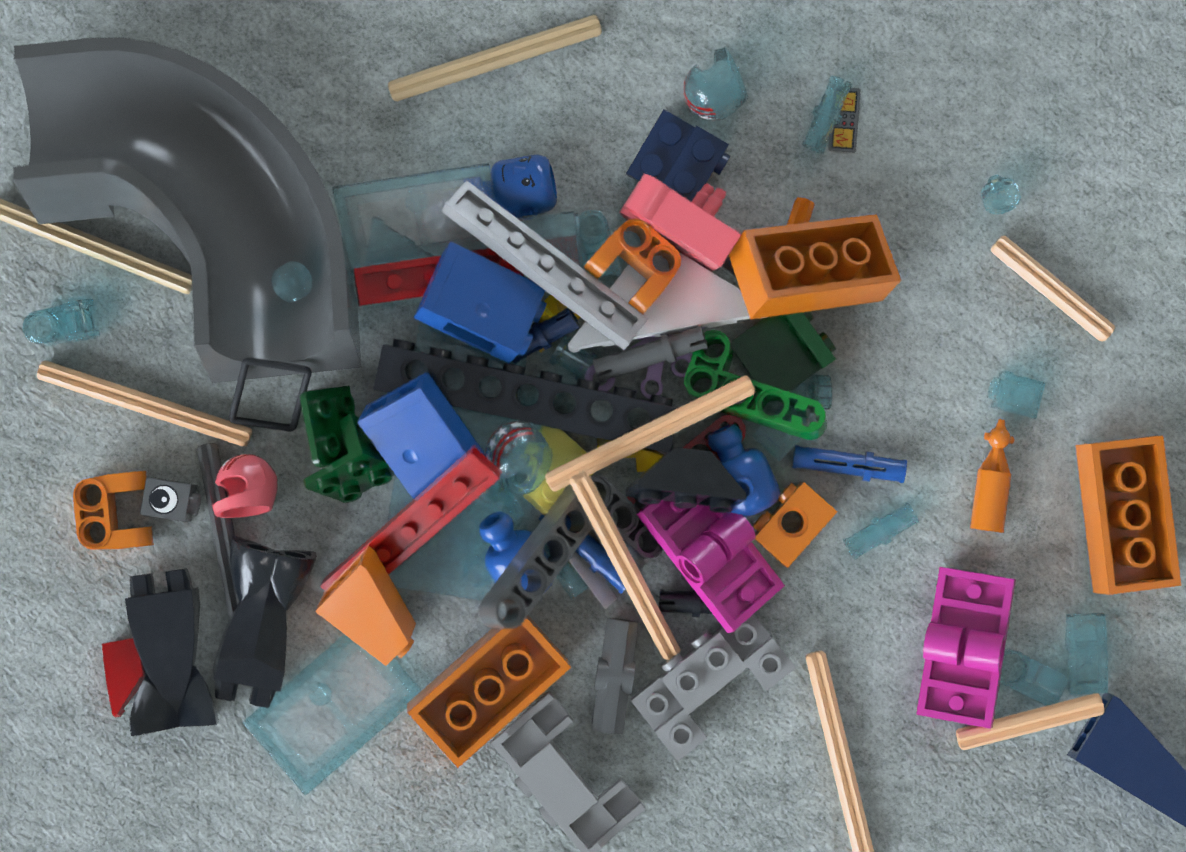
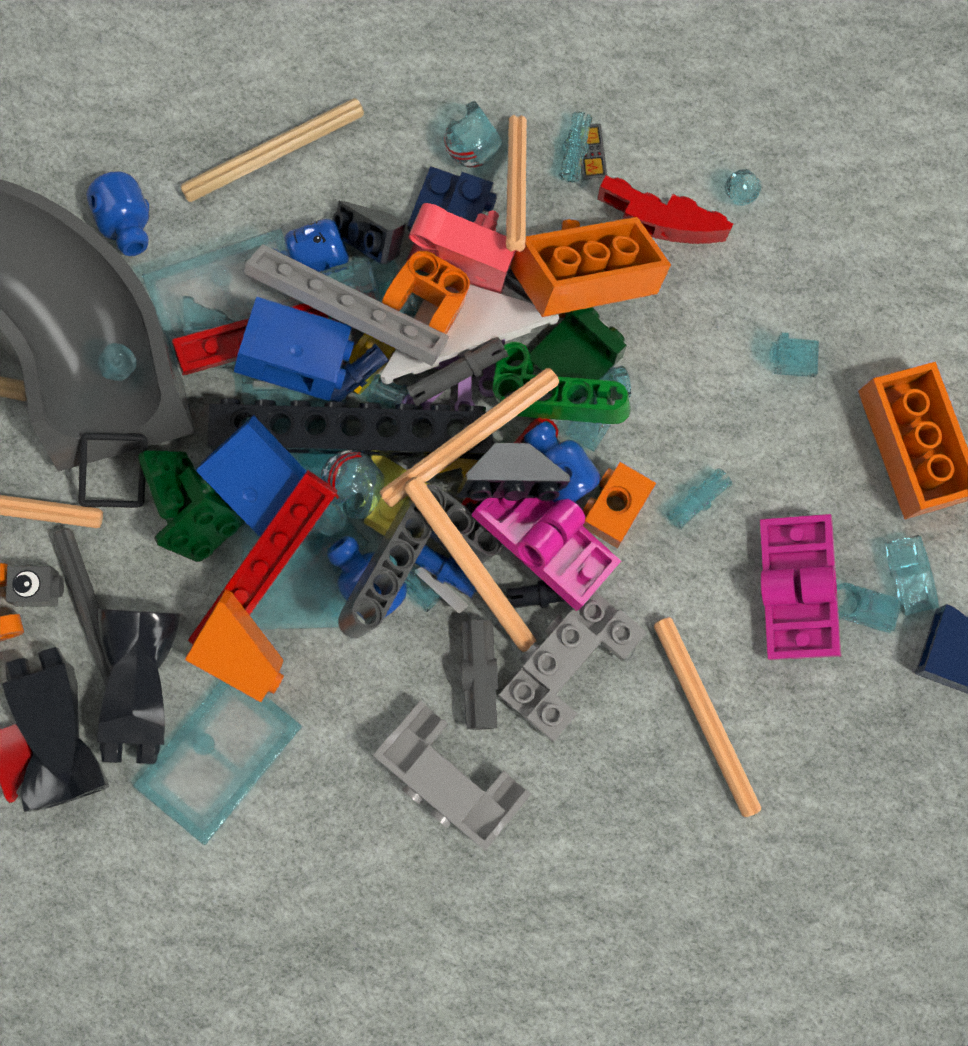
camera: 10 degrees left, 10 degrees down
(249, 486) = (105, 561): coral helmet -> none
(319, 103) = (120, 211): none -> blue piece
(487, 688) = (362, 704): orange brick -> none
(585, 177) = (370, 231): none -> black slope
(752, 158) = (516, 184): none -> light nougat axle
(893, 469) = (698, 440): blue pin -> none
(920, 221) = (676, 222): none -> red slope
(993, 483) = (791, 438): orange wheel -> none
(1031, 721) = (875, 645): light nougat axle -> none
(1053, 288) = (807, 259): light nougat axle -> none

